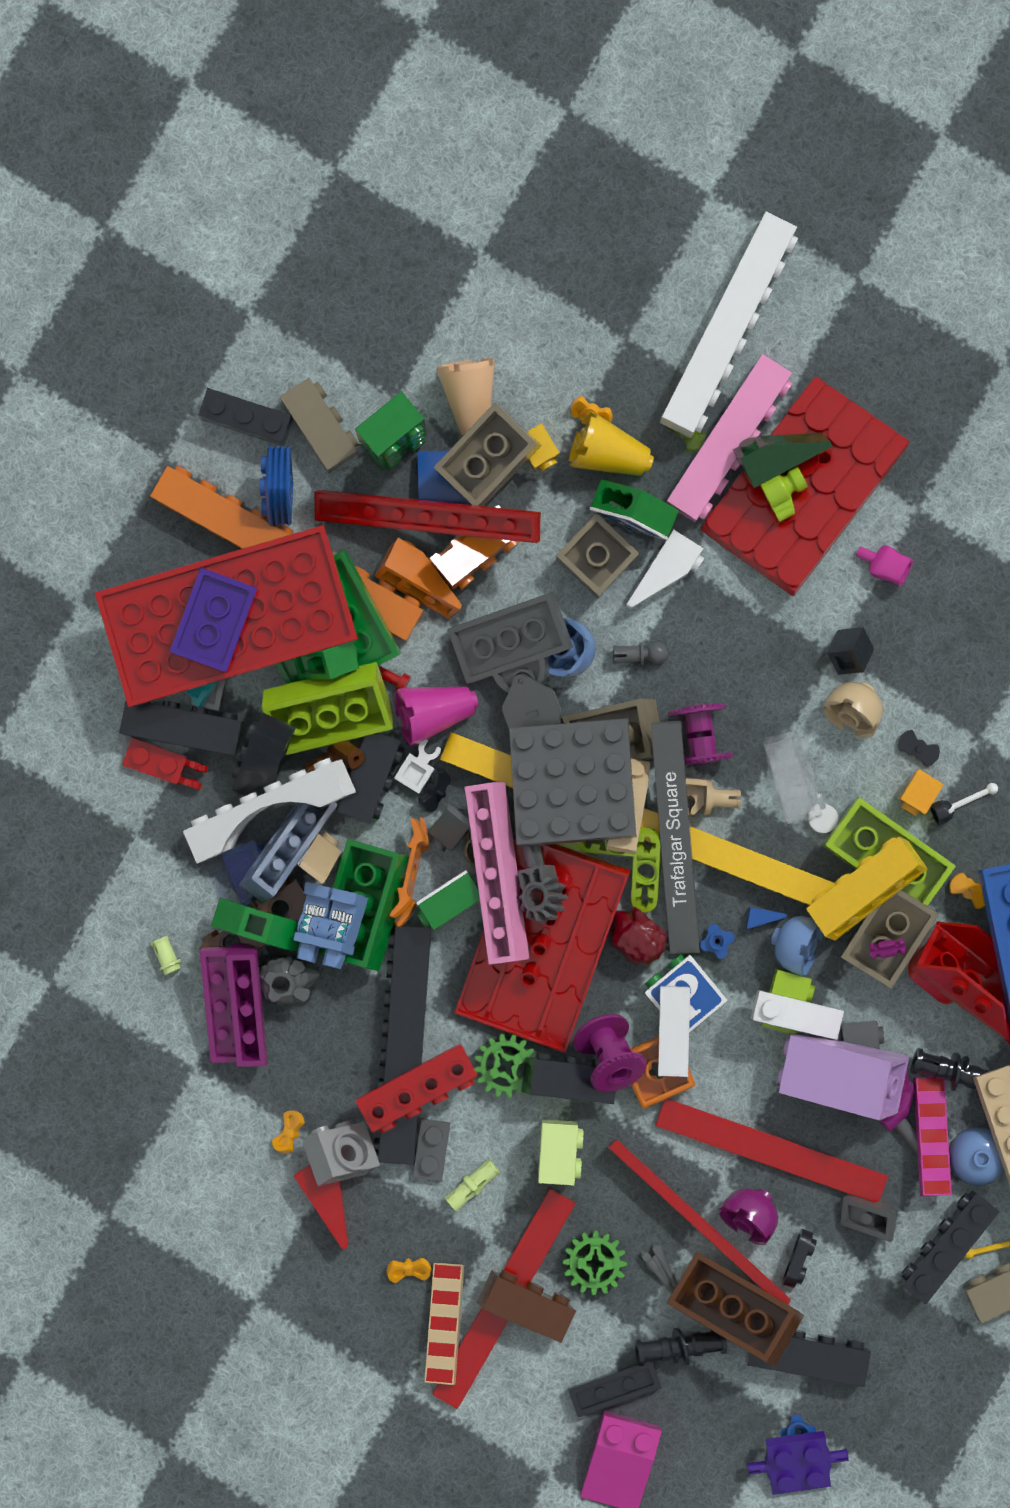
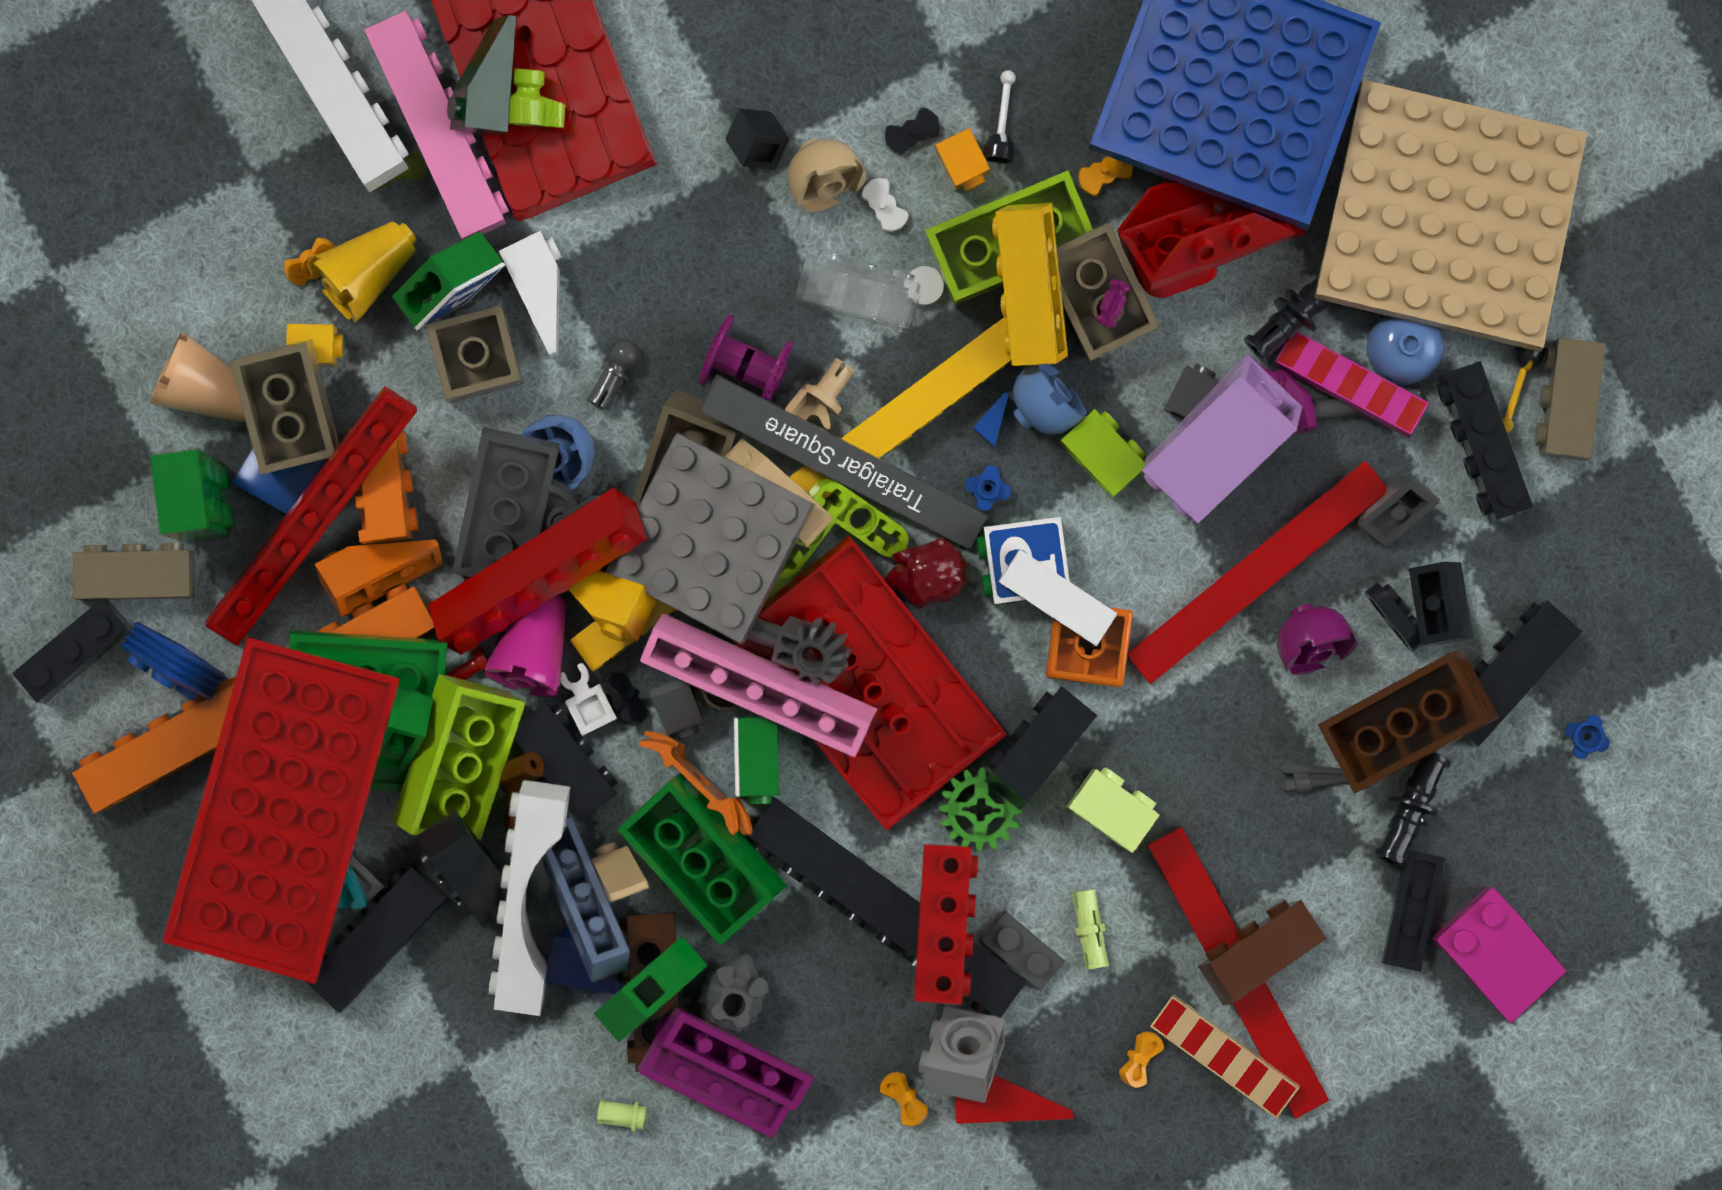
camera: 60 degrees left, 0 degrees up
(161, 763) = (403, 987): red hinge -> none
(213, 620) = (276, 826): dark purple plate -> none
(329, 922) = (697, 907): medium blue hips -> none
(482, 684) = (537, 571): none -> red brick
(492, 747) = (615, 604): none -> yellow slope
(607, 1040) = (1055, 682): magenta hose -> none
(608, 1262) = (1270, 831): bright green gear -> none
(697, 1221) = (1283, 703): red tile -> none
(796, 1014) = (1123, 449): white slope -> none
(798, 1462) = (1620, 757): dark purple plate -> none
(825, 1283) = (1441, 603): none -> black brick
(855, 765) = (890, 216): none -> white piece
(887, 564) = (685, 38): dark pink piece -> none

